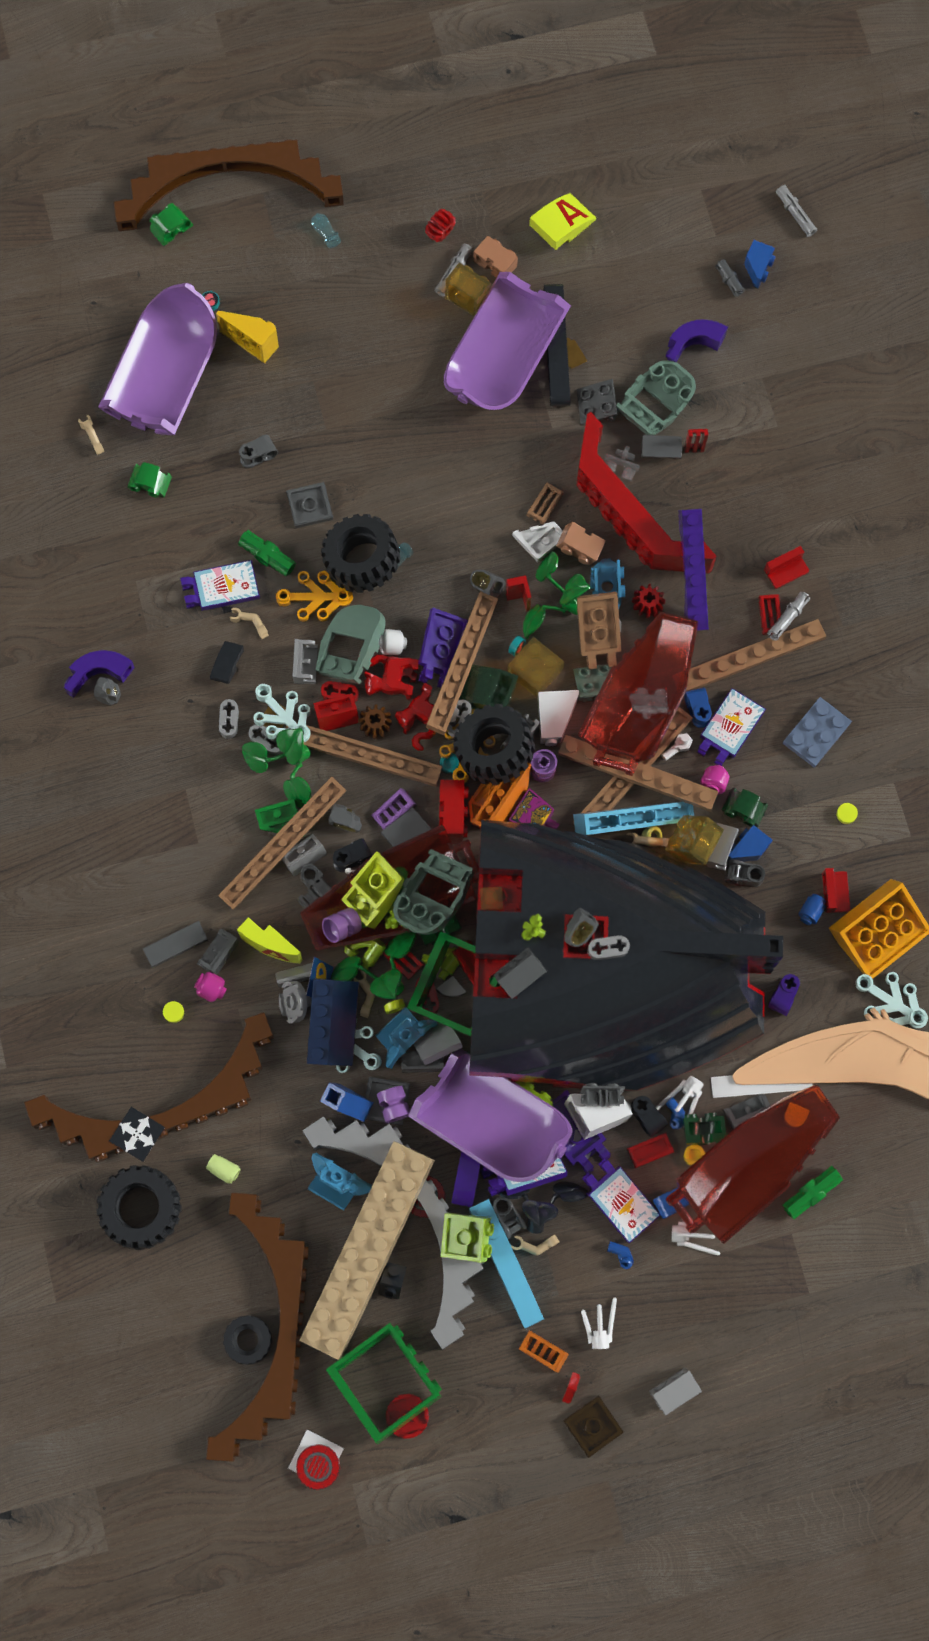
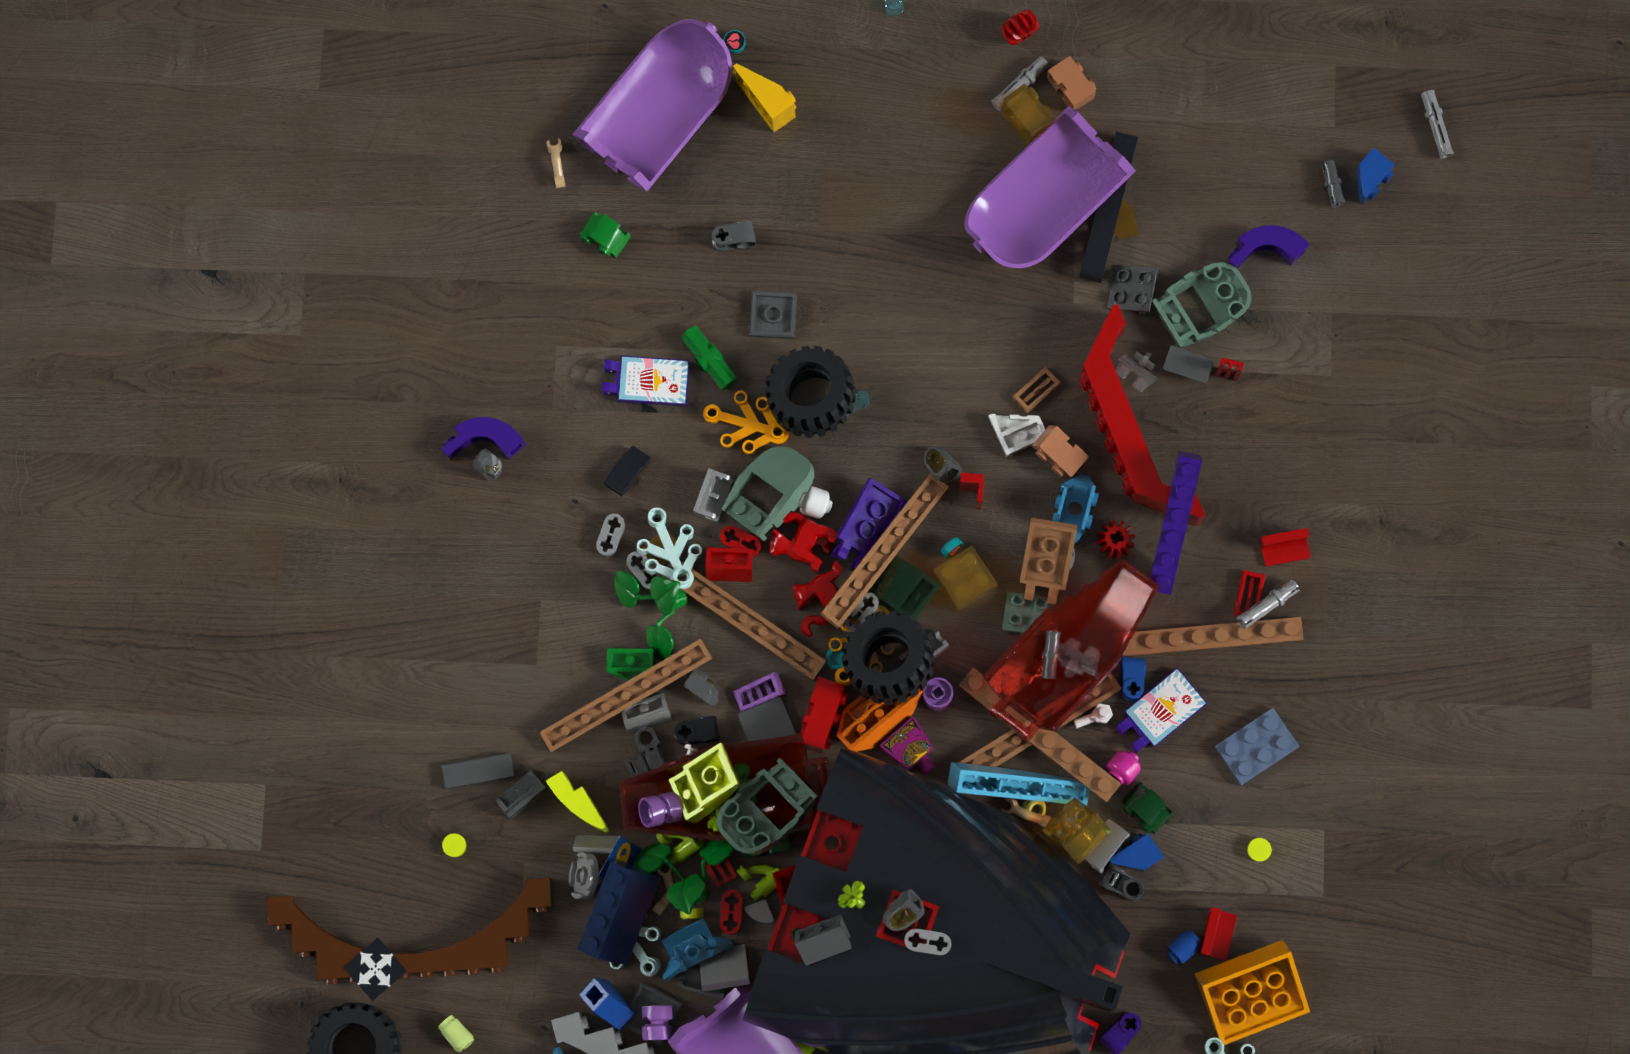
camera: 25 degrees right, 5 degrees up
(210, 986) = (501, 830): dark pink head -> none
(250, 617) = (672, 427): tan arm -> none
(373, 715) = (769, 579): reddish brown gear -> none
(429, 975) = (736, 895): green window -> none
(491, 898) = (821, 844): clear orange plate -> none
(554, 714) = (969, 639): white slope -> none
(561, 220) = (1162, 59): neon yellow slope -> none
(574, 588) = (1033, 506): green plant -> none
(626, 704) = (1050, 654): none -> dark grey pin

